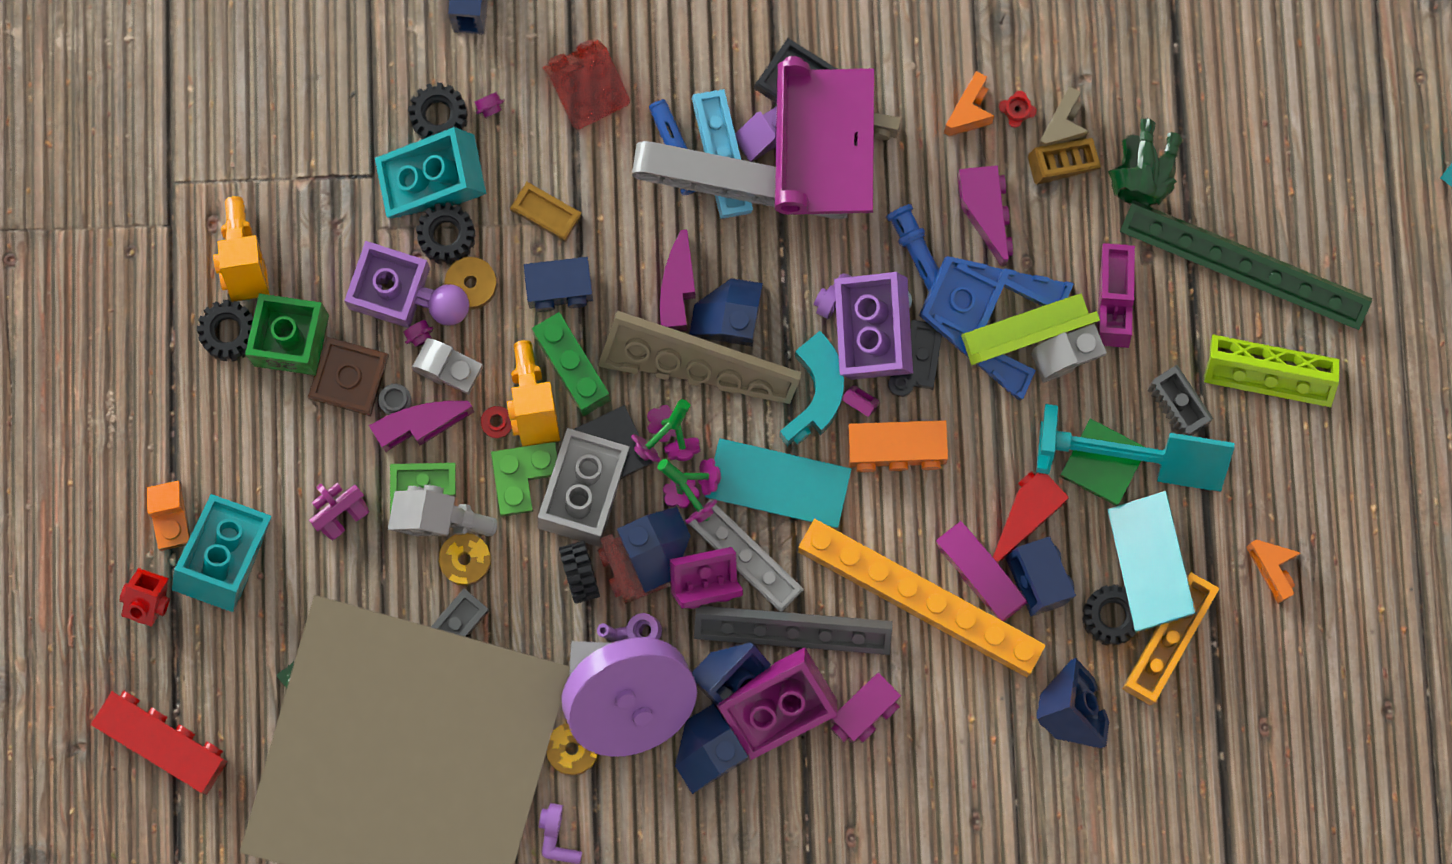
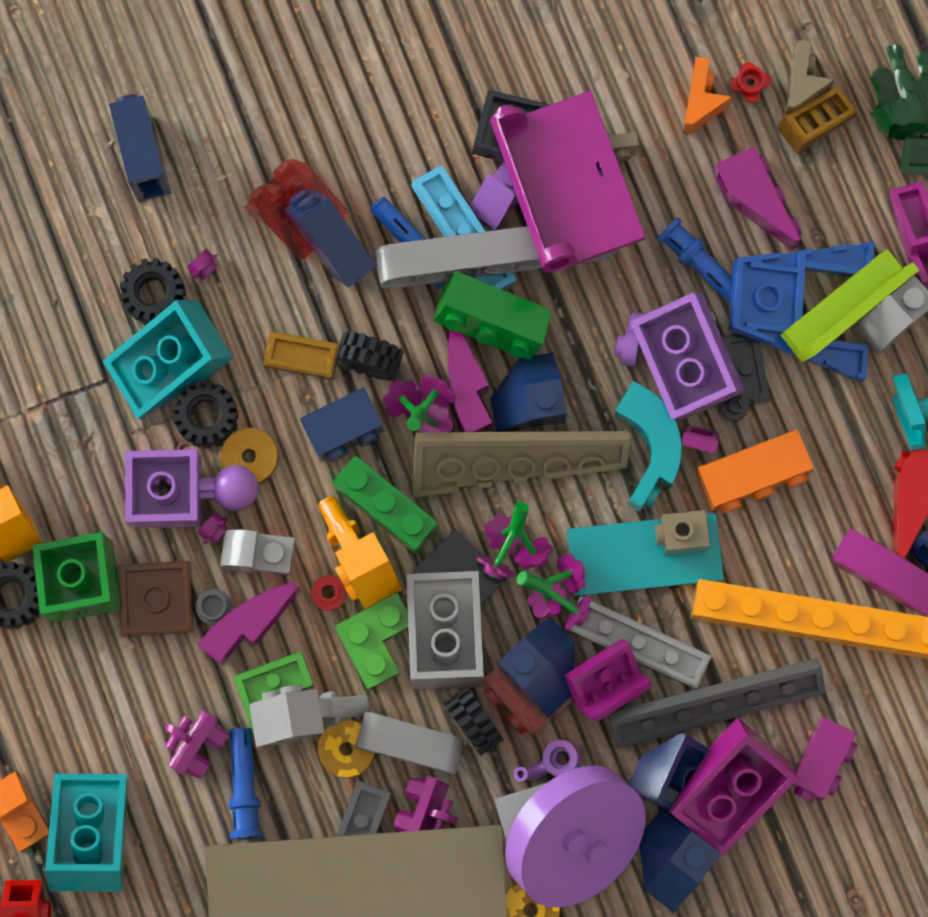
camera: 15 degrees left, 0 degrees up
(362, 573) = (244, 802): none -> blue pin
(519, 572) = (410, 743): none -> light grey beam
(519, 631) = (432, 806): none -> magenta hips
(602, 231) = (369, 355): none -> black tyre
(603, 117) = (329, 236): none -> dark blue brick
(634, 300) = (428, 416): none -> magenta plant
(719, 233) = (492, 315): none -> green brick
(815, 475) = (683, 532): none -> dark tan brick

